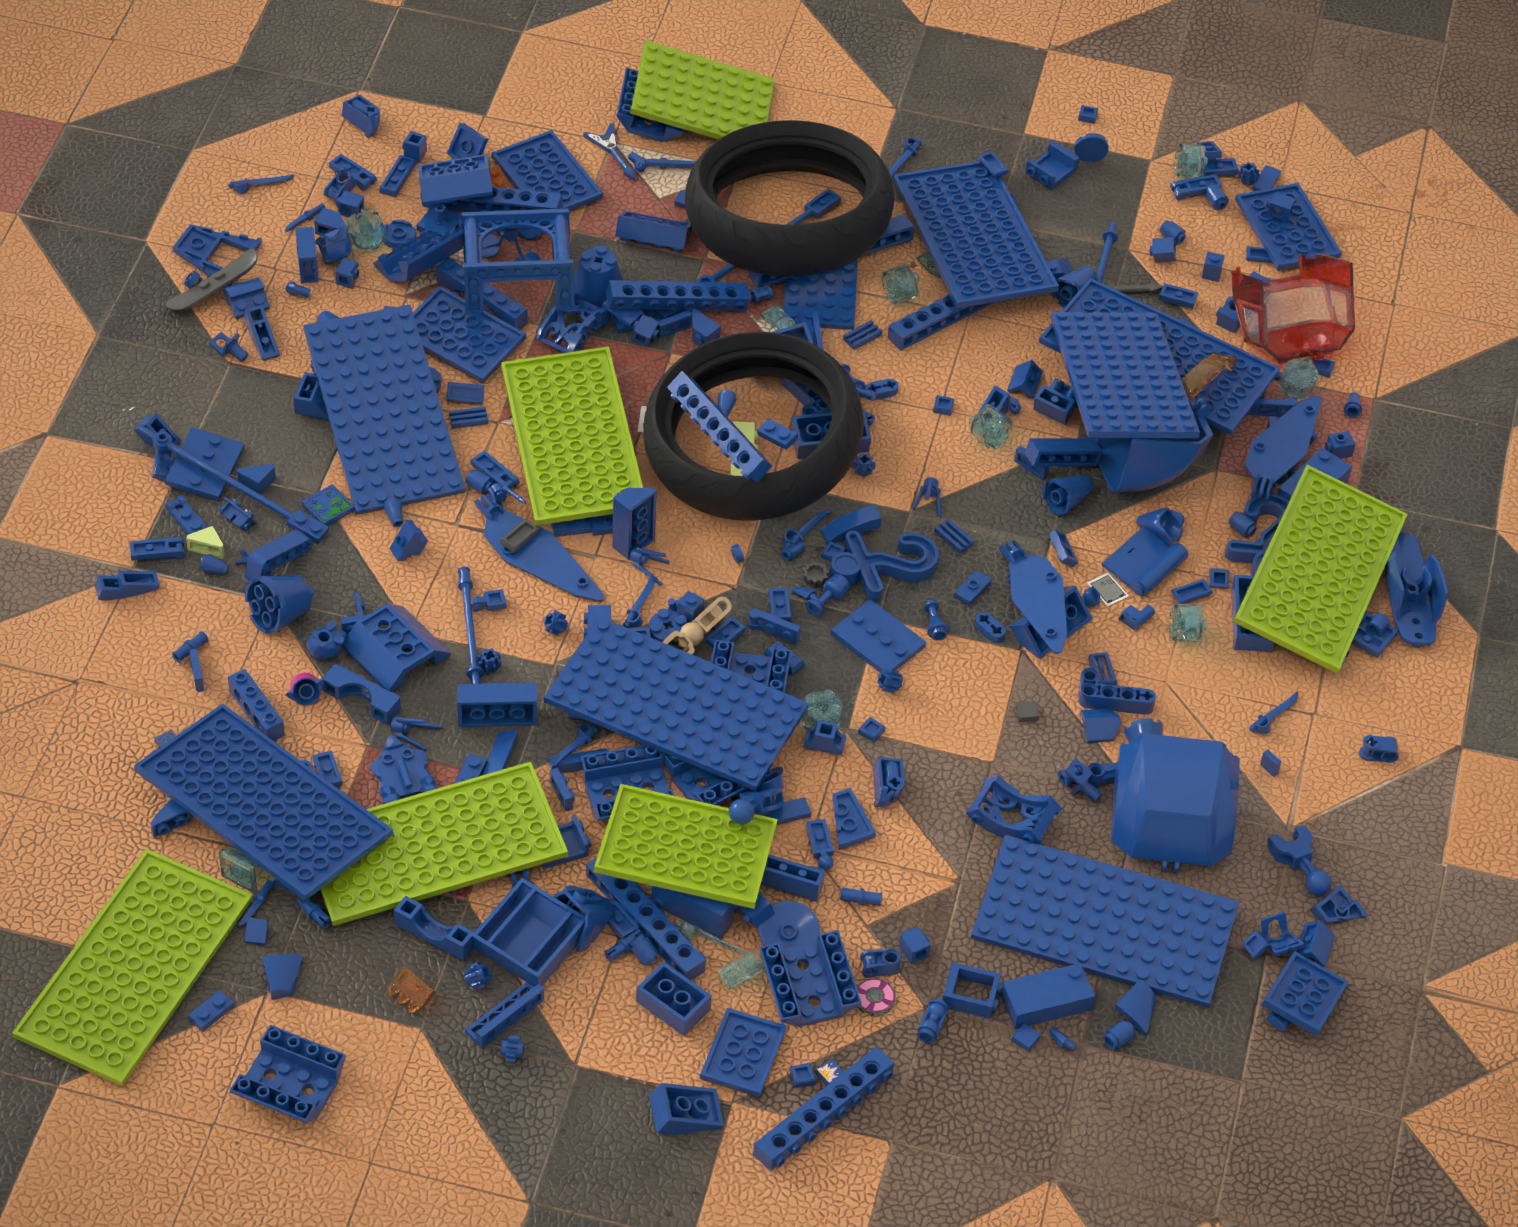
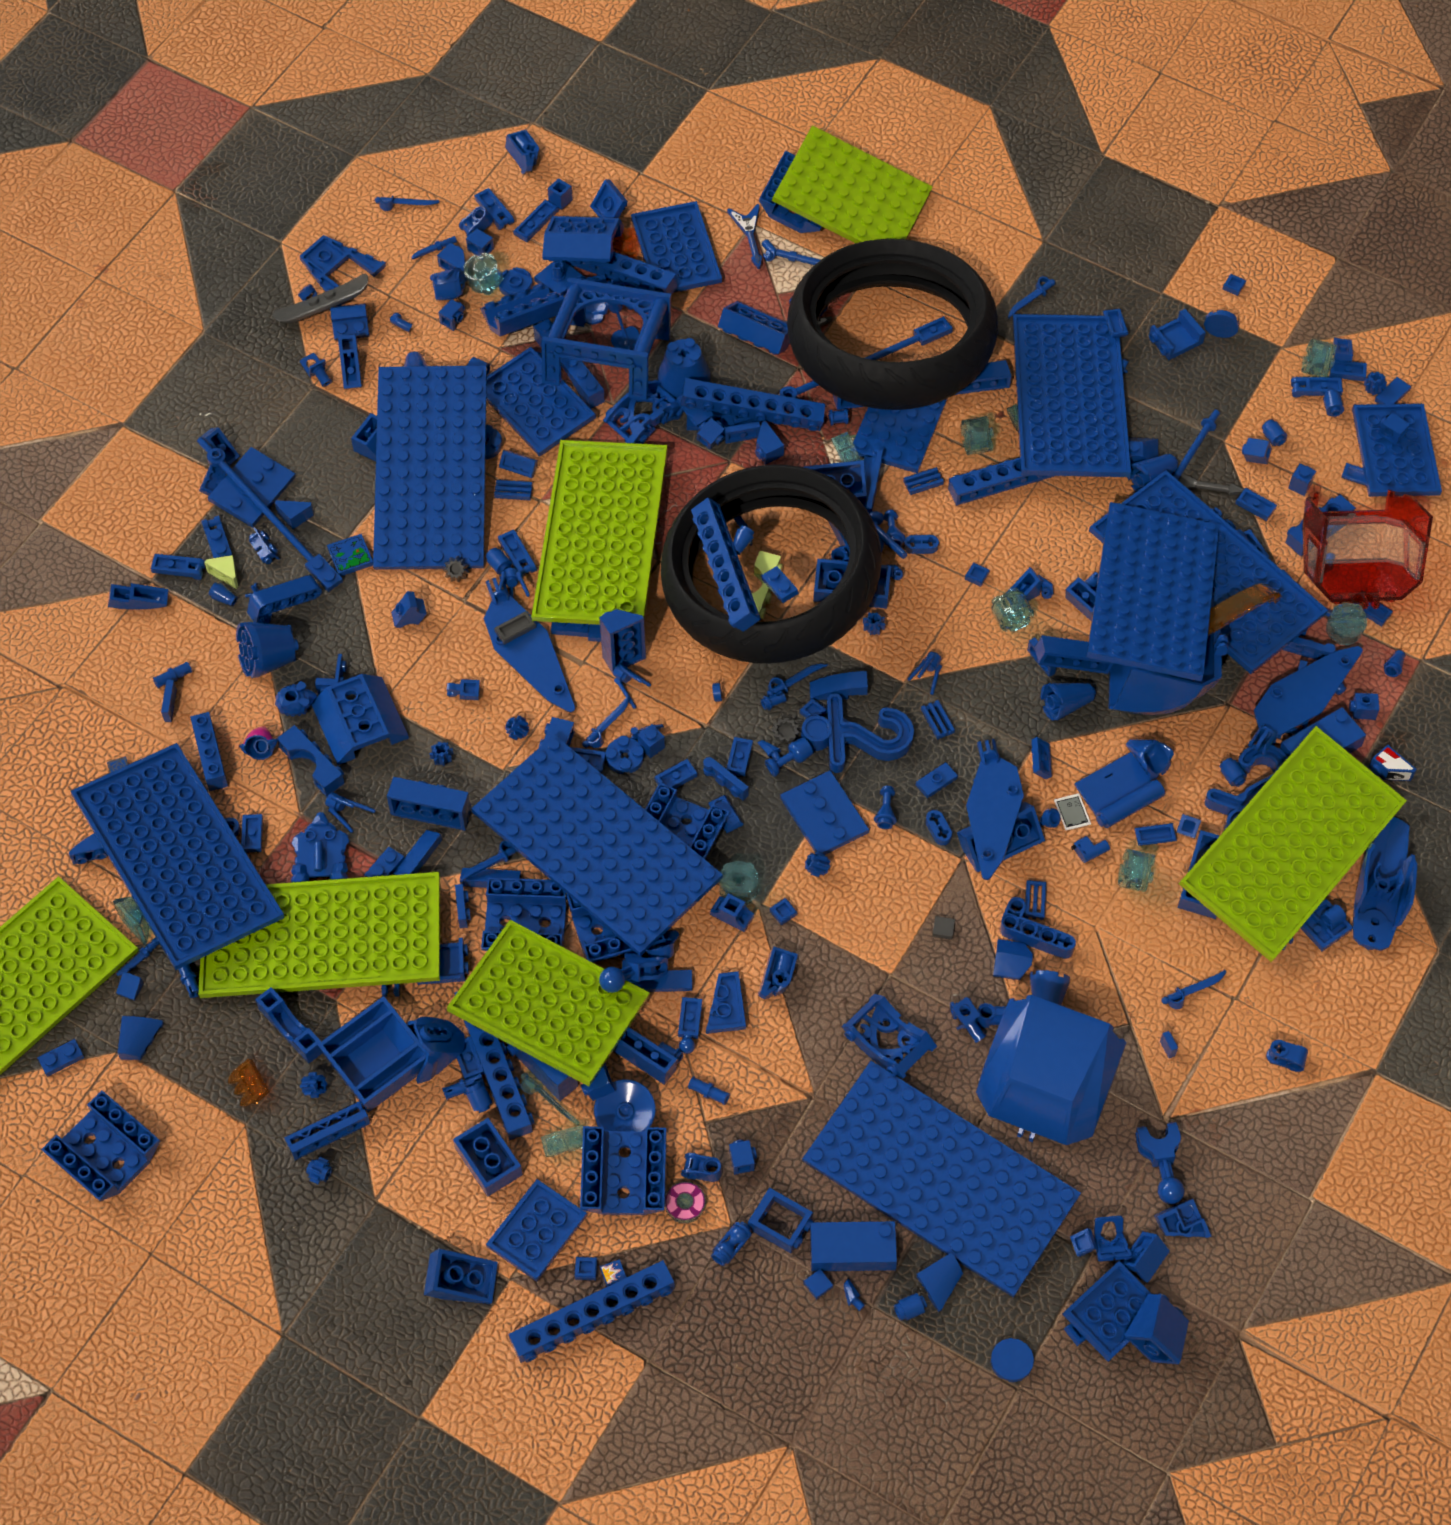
camera: 20 degrees right, 10 degrees up
(307, 255) = (418, 289): blue window -> none
(393, 509) = (408, 575): blue cone -> none
(440, 497) = (456, 569): none -> dark grey piece
(465, 585) = (447, 667): blue bar -> none
(693, 632) = (643, 768): tan piece -> none
(1026, 378) = (1069, 563): blue panel -> none
(1228, 1058) = (1012, 1360): none -> blue tile
(1352, 998) = (1158, 1330): none -> blue slope
(1384, 488) = (1391, 766): none -> slope

